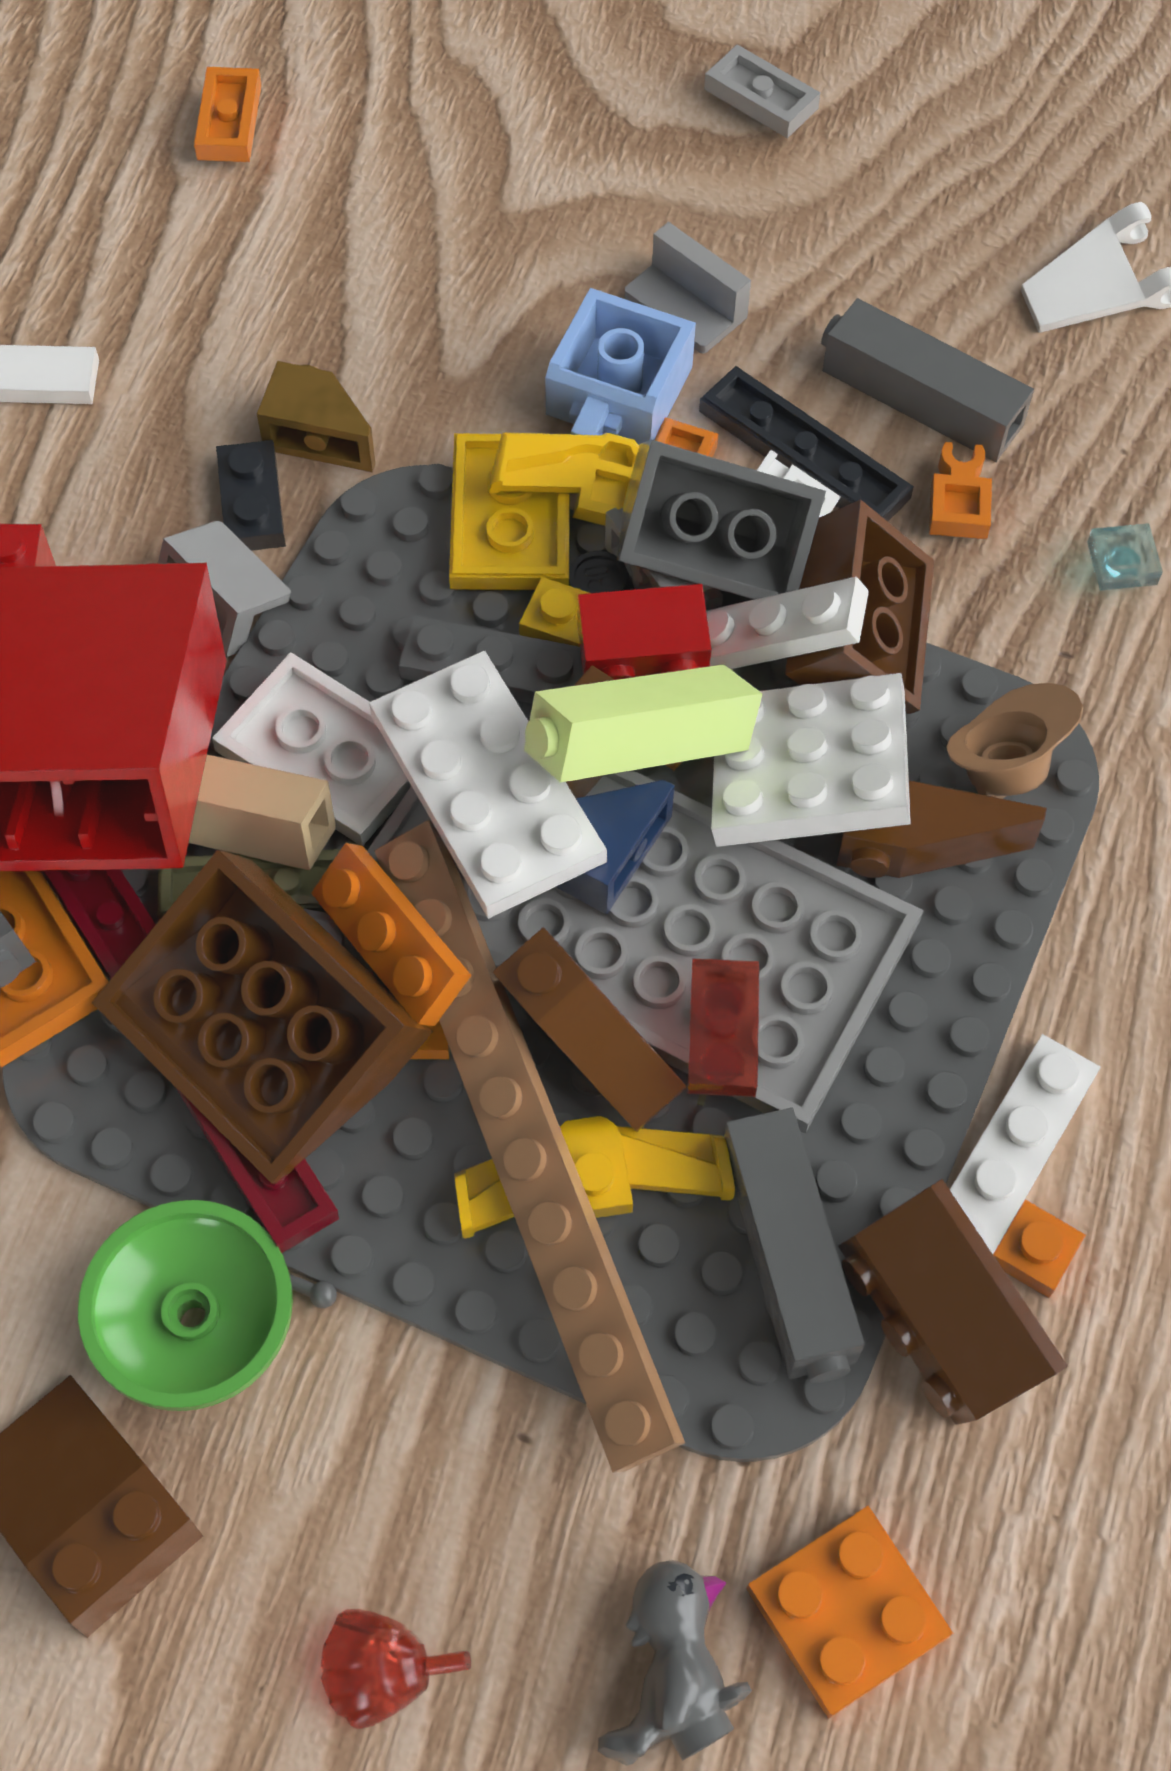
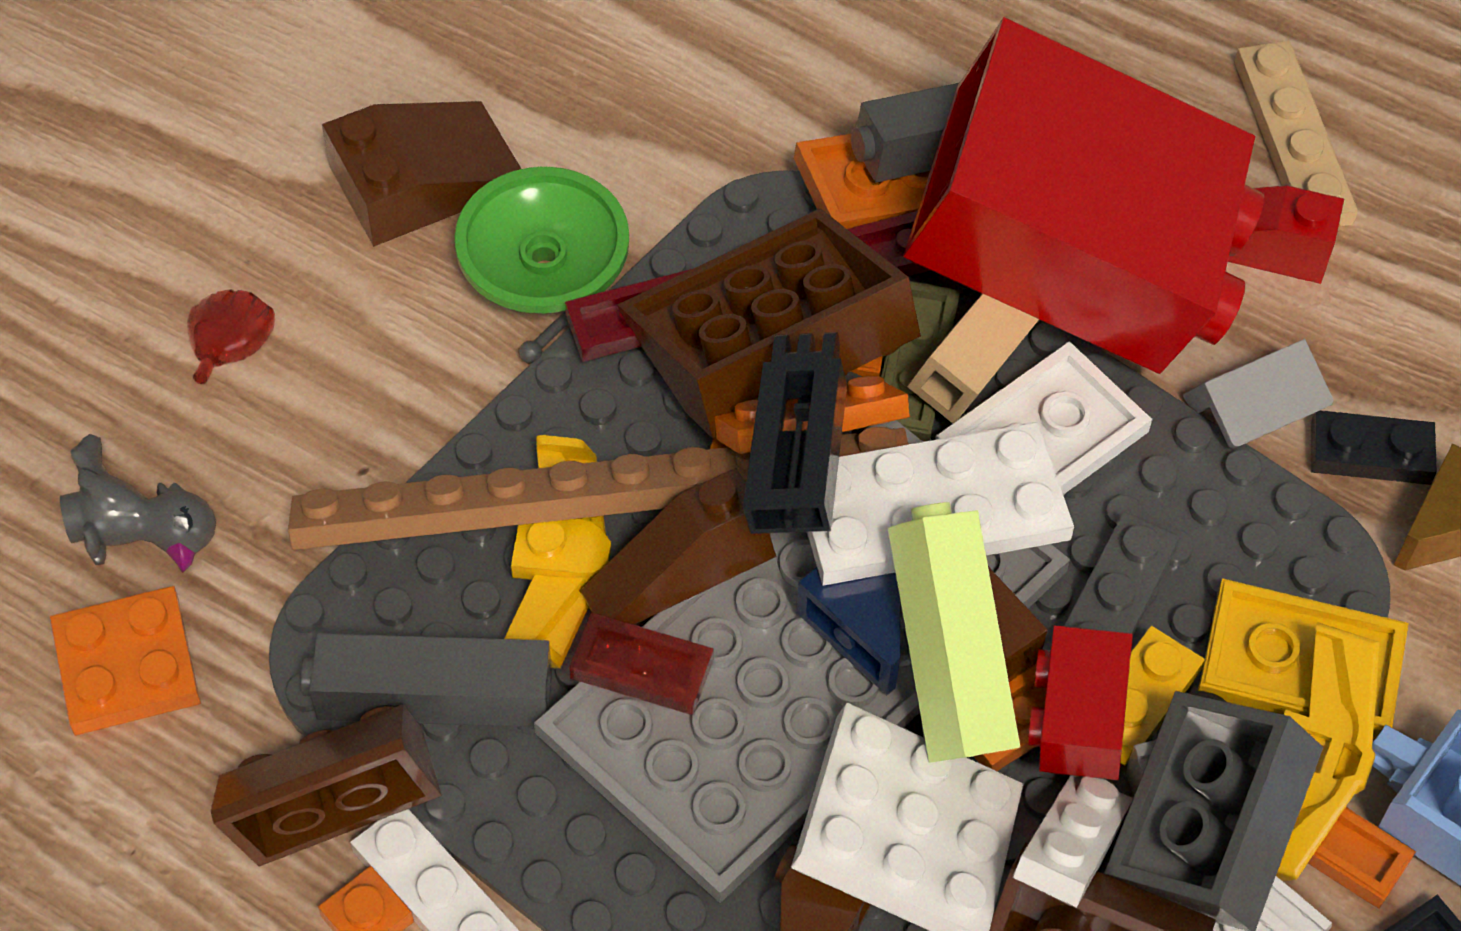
camera: 105 degrees right, 5 degrees down
(488, 893) = (796, 471): none -> black hinge

